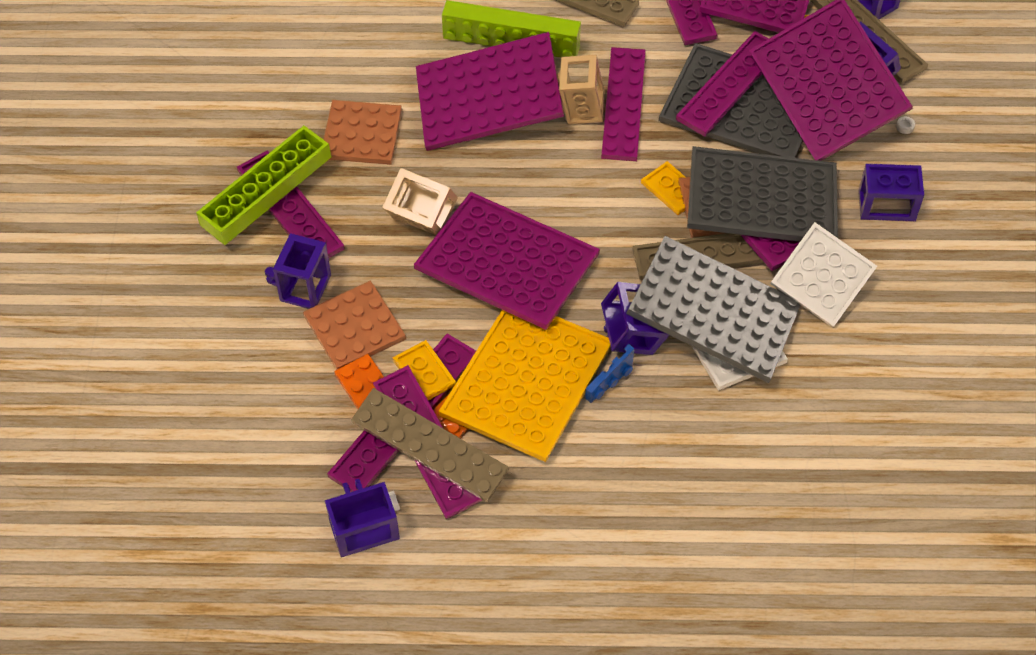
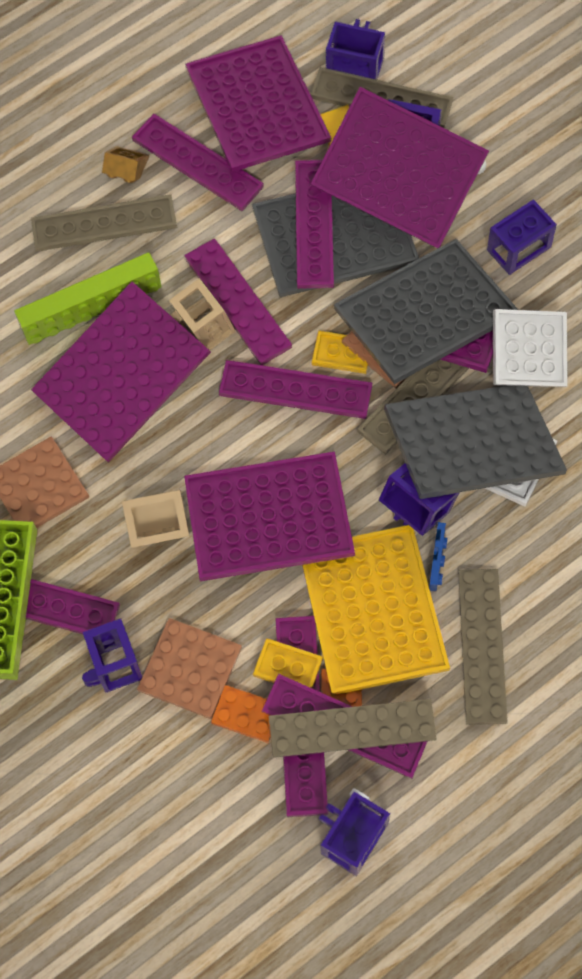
camera: 35 degrees left, 10 degrees up
(588, 466) = (482, 647): none -> dark tan plate
(612, 190) = (296, 389): none -> magenta plate

